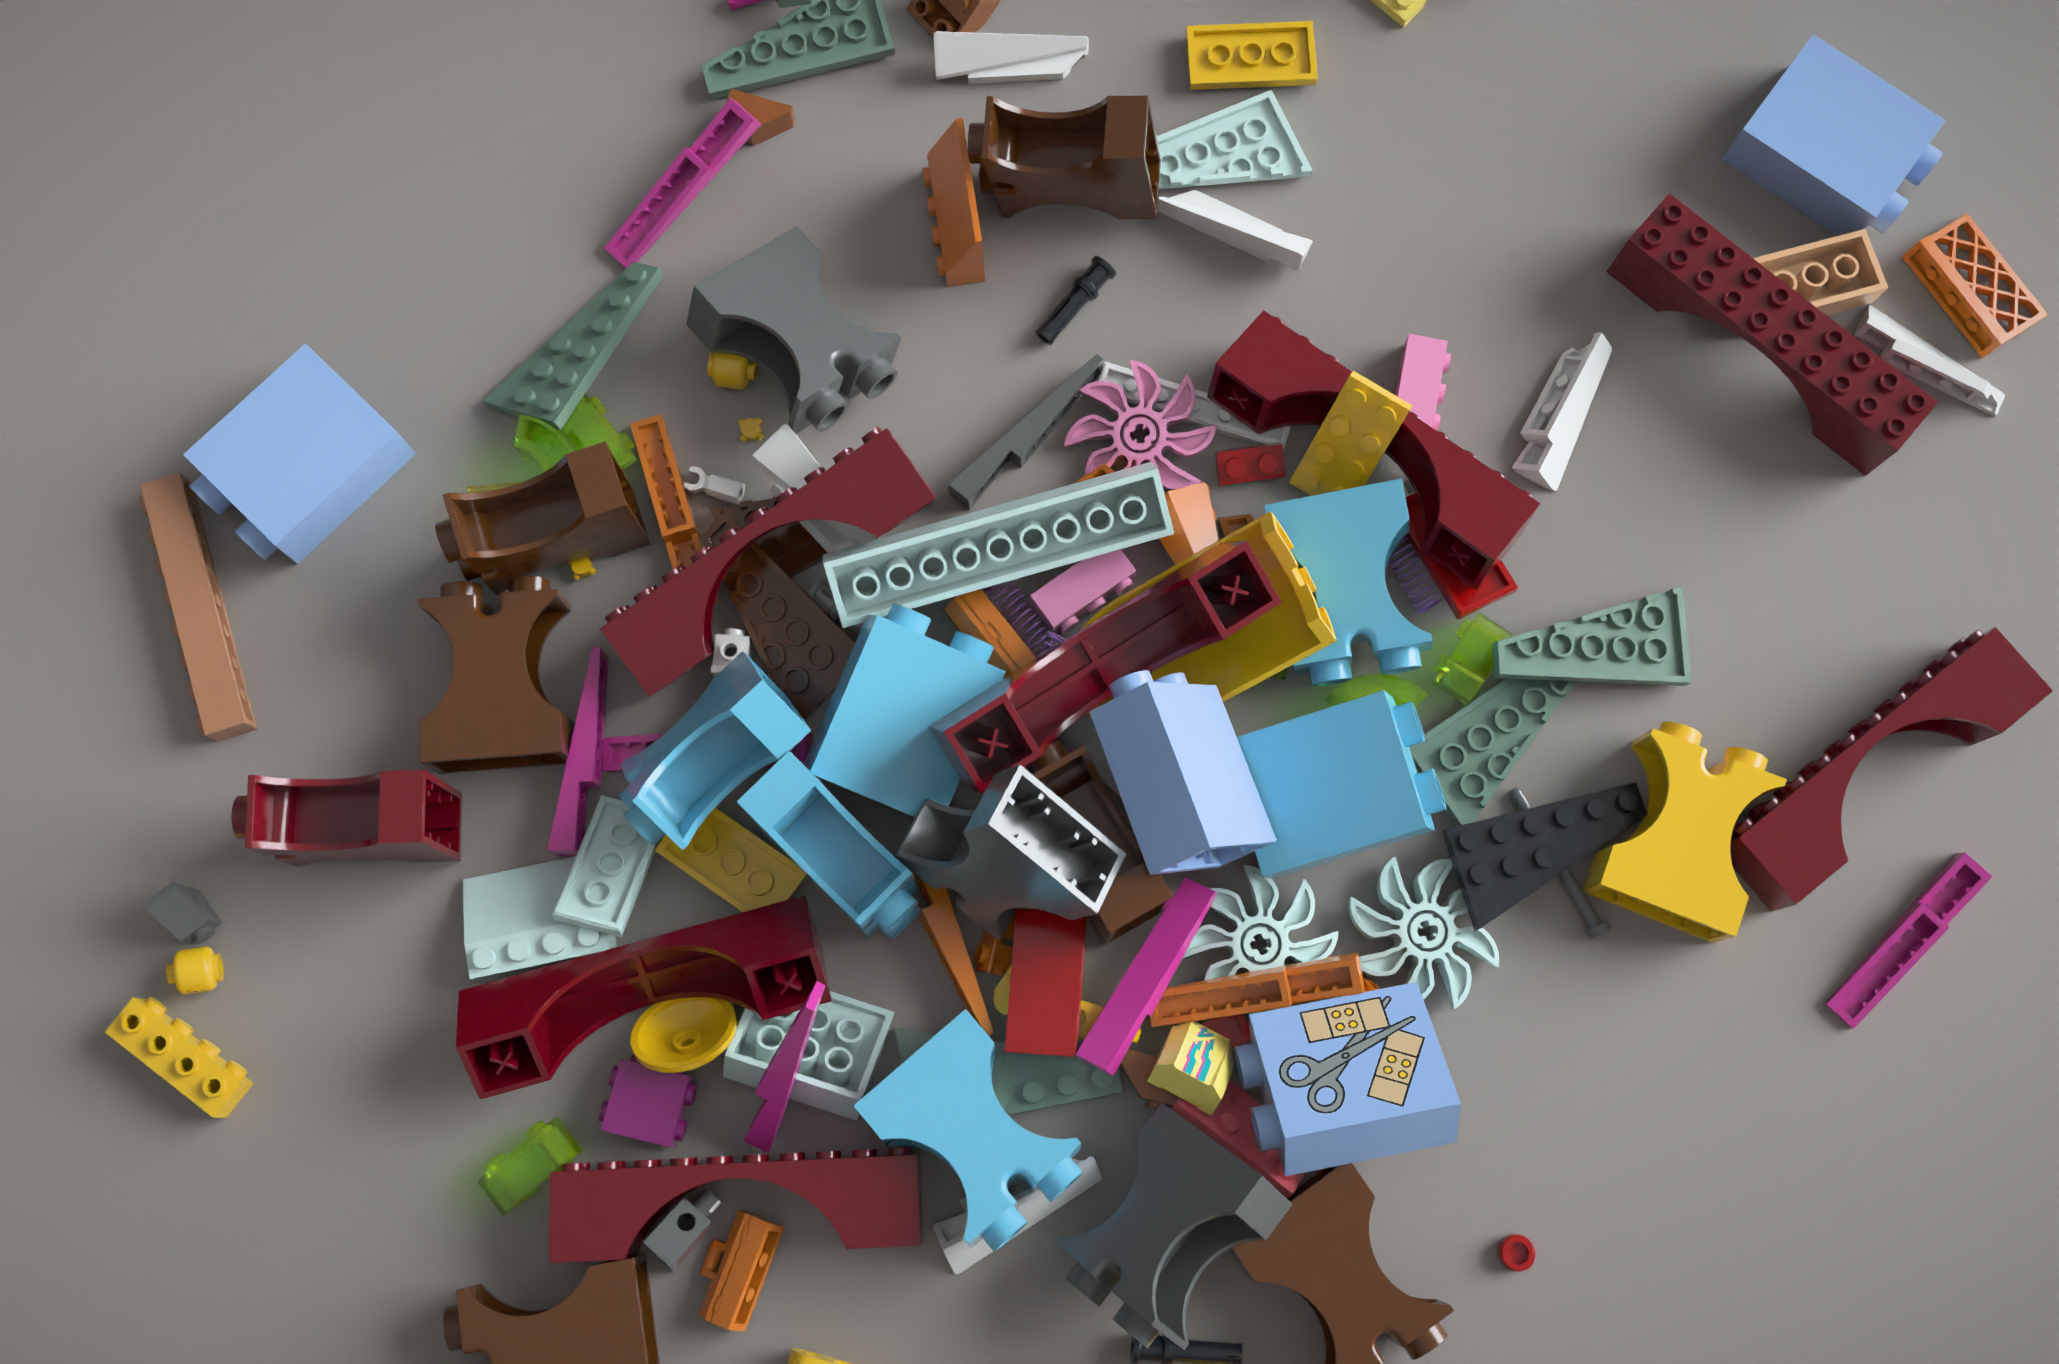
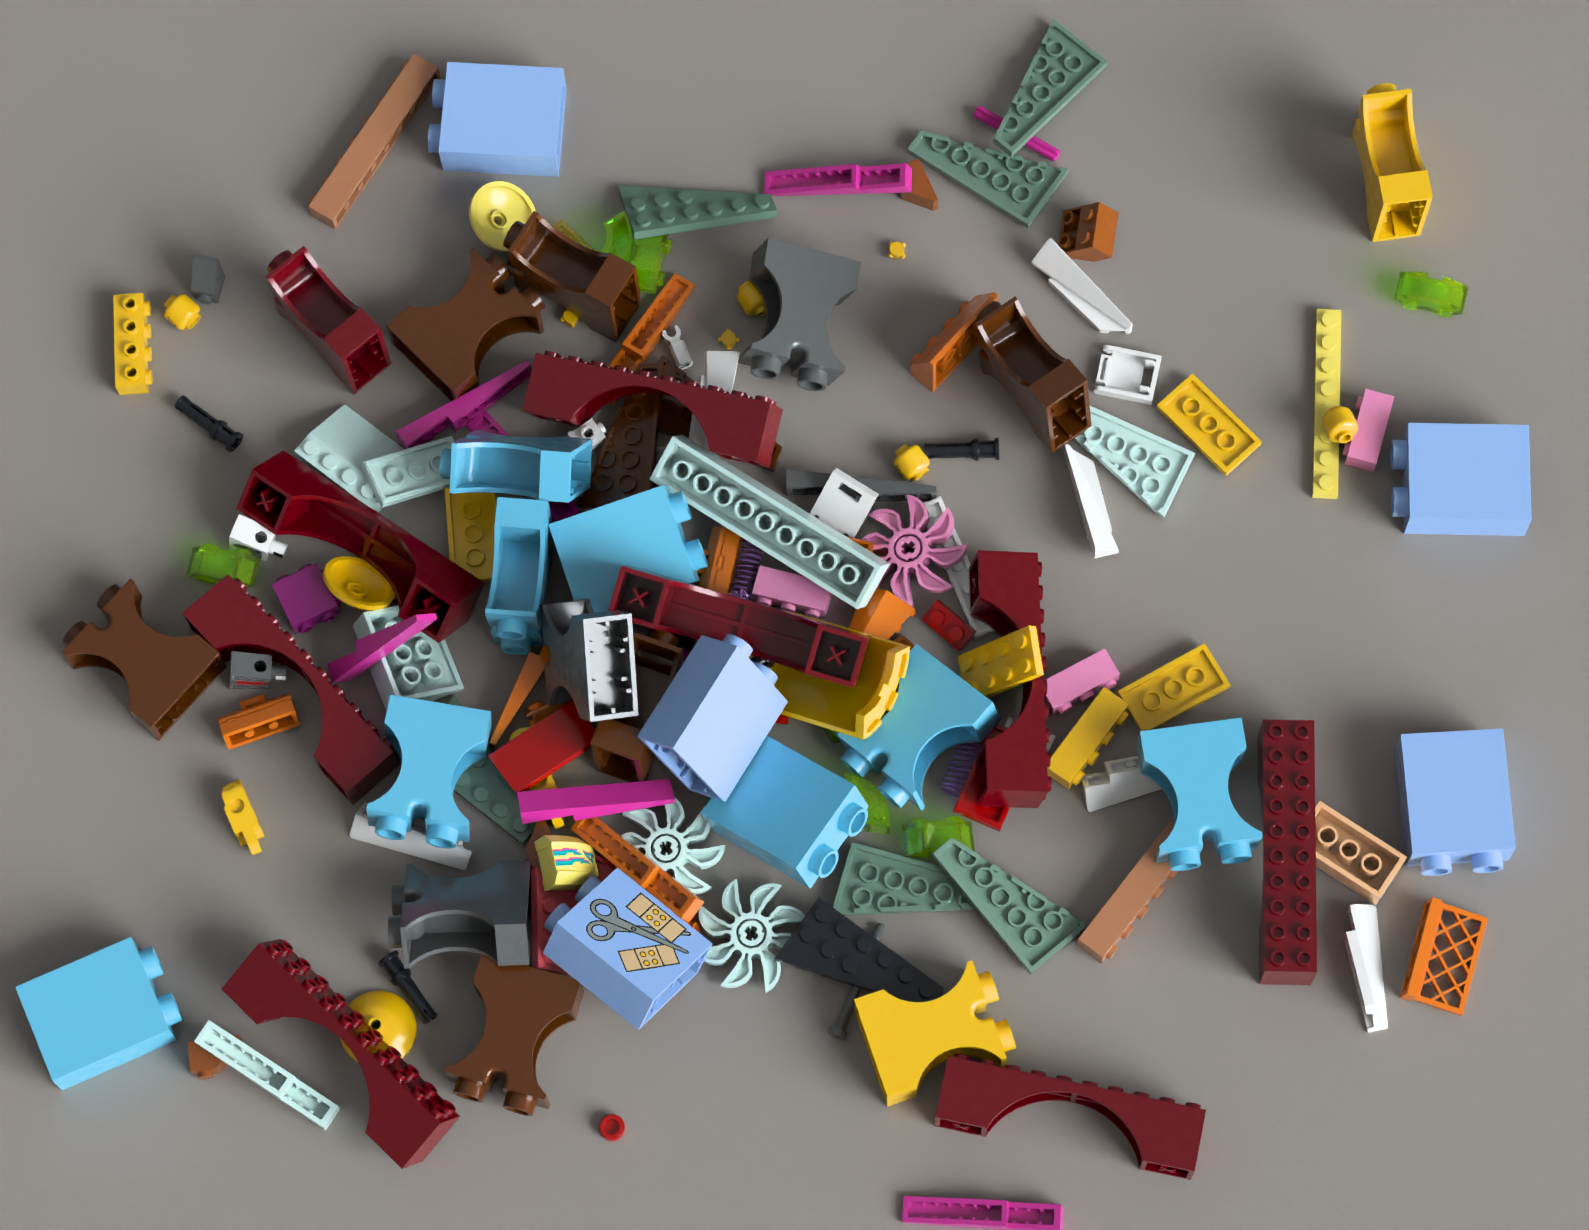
camera: 55 degrees right, 5 degrees down
(364, 1042) = (217, 429): none -> black pin
(401, 530) = (499, 202): none -> light yellow dish
(517, 1111) = (248, 533): none -> white torso
(804, 192) = (896, 250): none -> yellow piece
(1040, 465) = (839, 508): none -> white container
(1045, 359) = (911, 462): none -> yellow head
(1124, 78) = (1124, 372): none -> white container
(1484, 418) = (1087, 737): none -> yellow brick
(1498, 307) = (1174, 688): none -> yellow plate
(1640, 355) = (1194, 772): none -> medium azure brick
(1676, 482) = (1128, 902): none -> nougat brick

